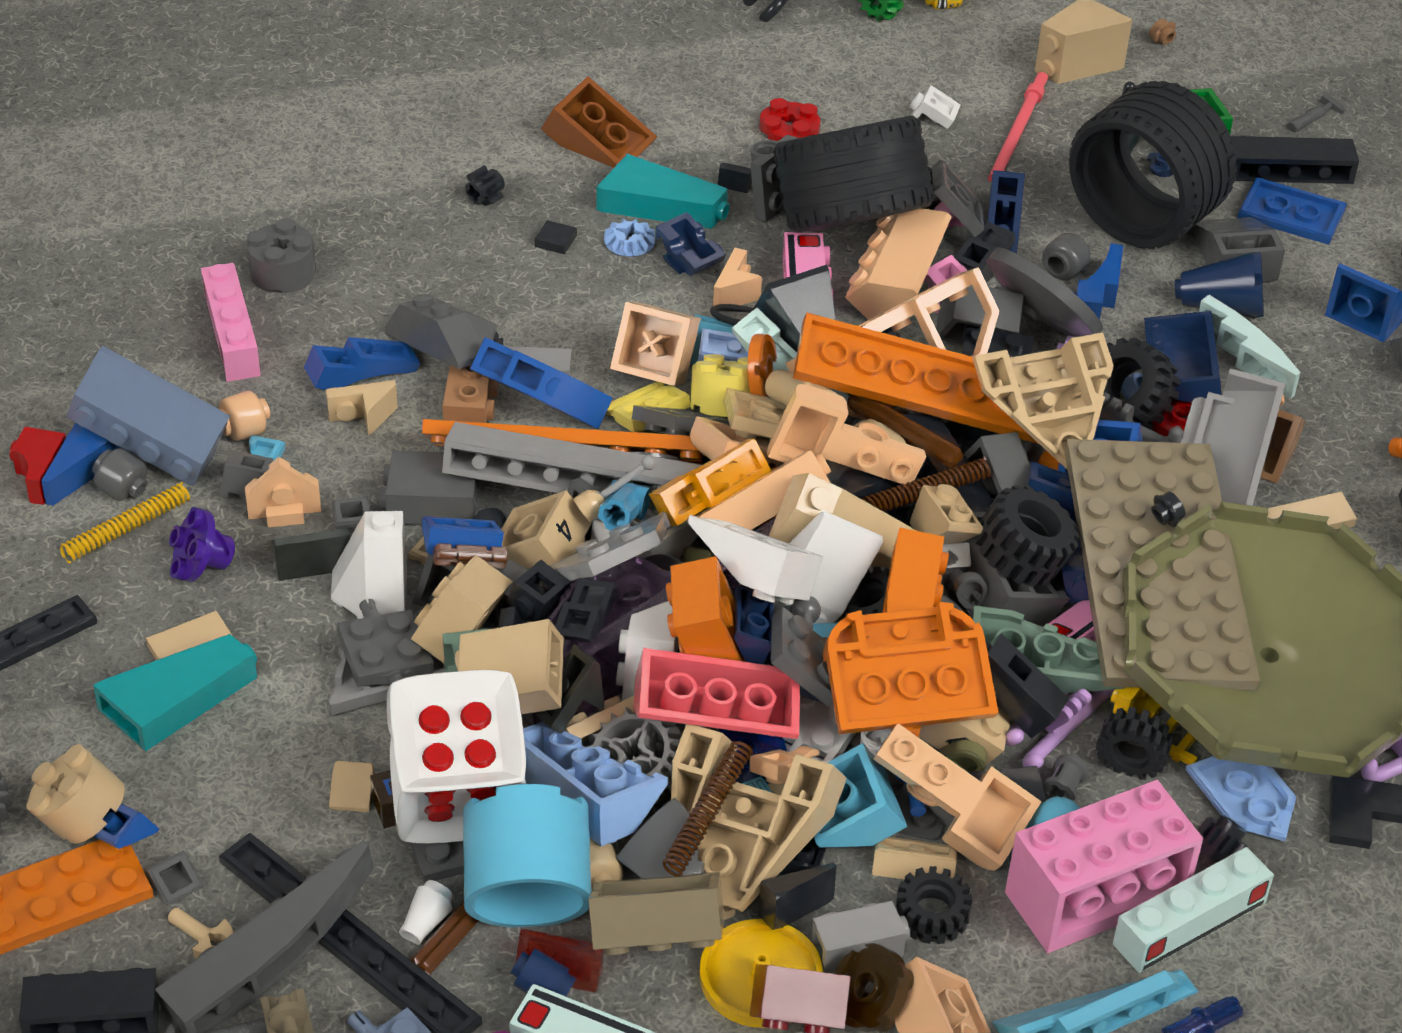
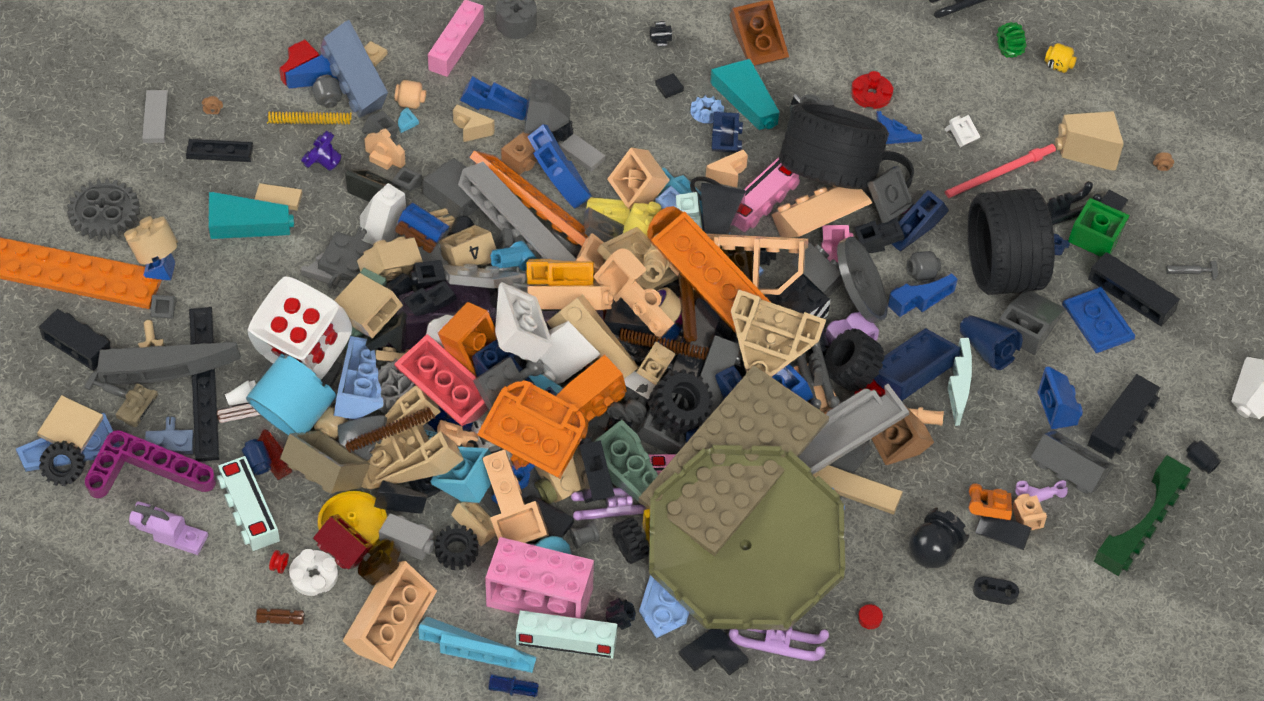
camera: 40 degrees right, 10 degrees up
(590, 500) = (498, 243): hinge -> none
(1168, 509) = (756, 435): black plate -> none

